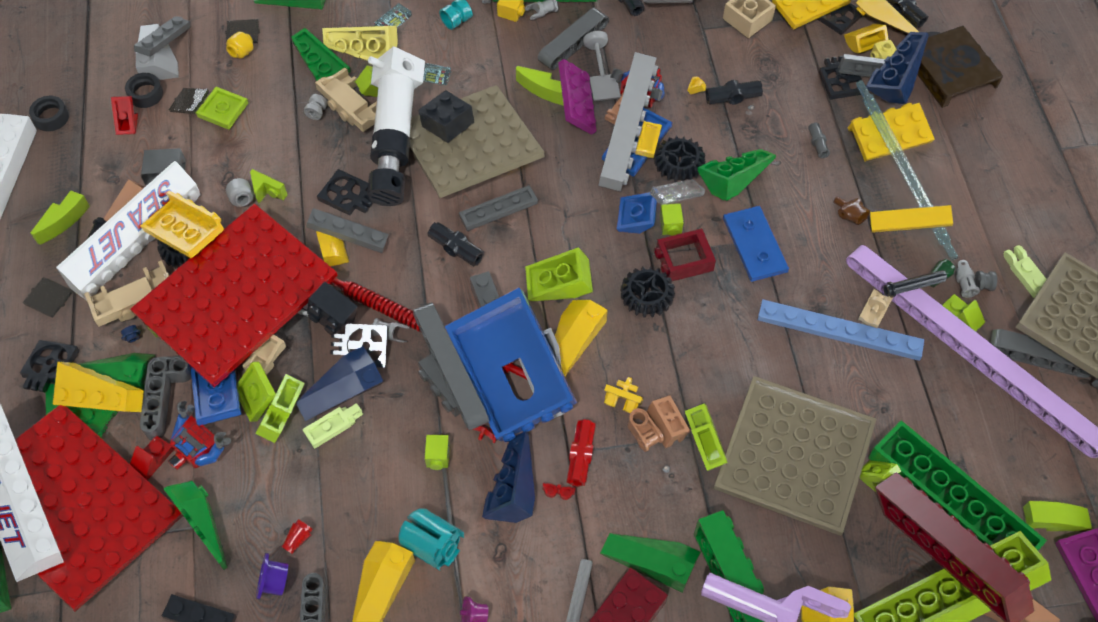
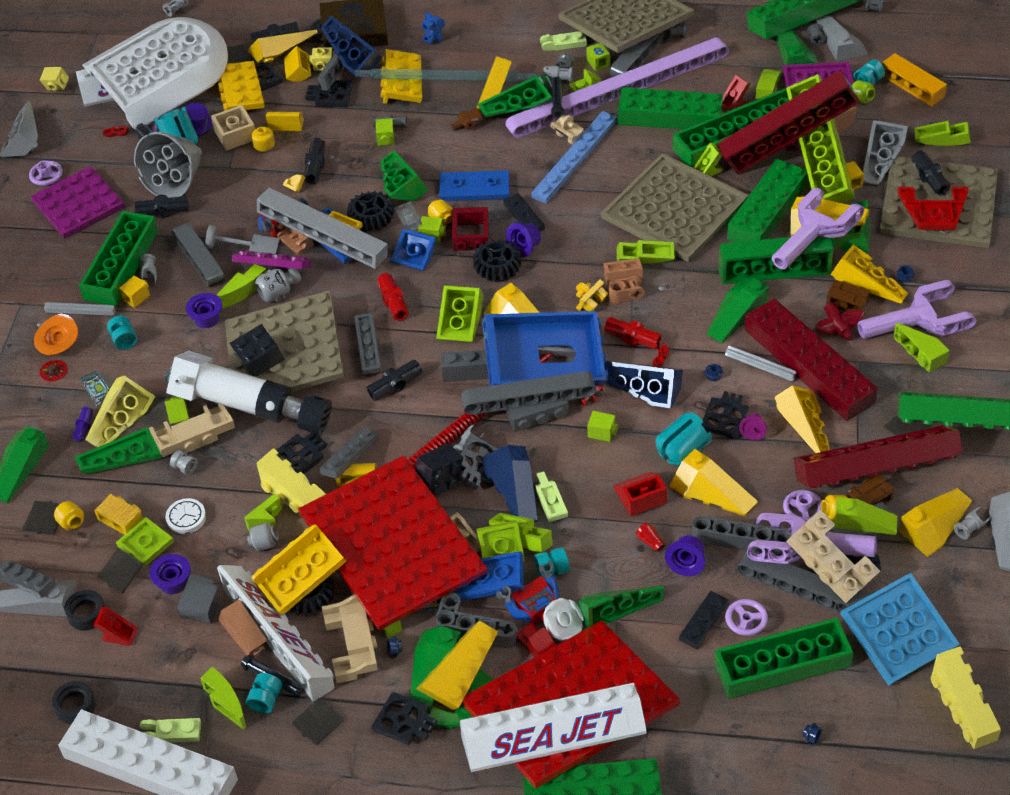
camera: 70 degrees left, 10 degrees down
(28, 191) = (174, 729): none -> yellowish green hinge
(60, 244) = (263, 694): none -> teal wheel
(171, 470) = (563, 619): none -> white tile
(184, 134) = (170, 573): none -> dark purple piece
(243, 447) = (557, 557): none -> teal wheel
(247, 79) = (118, 514): none -> yellow brick
(258, 129) = (185, 516): none -> white tile
(299, 193) = (282, 480): none -> light yellow wedge
(353, 510) = (642, 493): none -> red slope
(355, 21) = (82, 424): none -> dark purple axle
(499, 63) = (204, 309): none -> dark purple piece
(507, 582) = (728, 404): none -> black piece
(548, 559) = (713, 372): none -> dark blue plate
(549, 109) = (276, 284): none -> light grey piece
(566, 211) = (392, 297): none -> red piece
(684, 308) = (524, 237): none -> dark purple piece
(697, 218) = (441, 209): none -> yellow head
(729, 301) = (522, 211): none -> black plate
(744, 40) = (263, 139): none -> yellow head
(780, 51) = (285, 121): none -> yellow brick
(799, 139) = (385, 131): none -> lime brick
(835, 558) = (768, 202): none -> green brick
(898, 247) = (522, 96): none -> green wedge
(956, 410) = (666, 108): none -> green brick
(974, 134) = (433, 27): none -> blue hips
(1012, 312) = (598, 56): none -> lime brick
(1014, 480) = (734, 94): none -> red slope

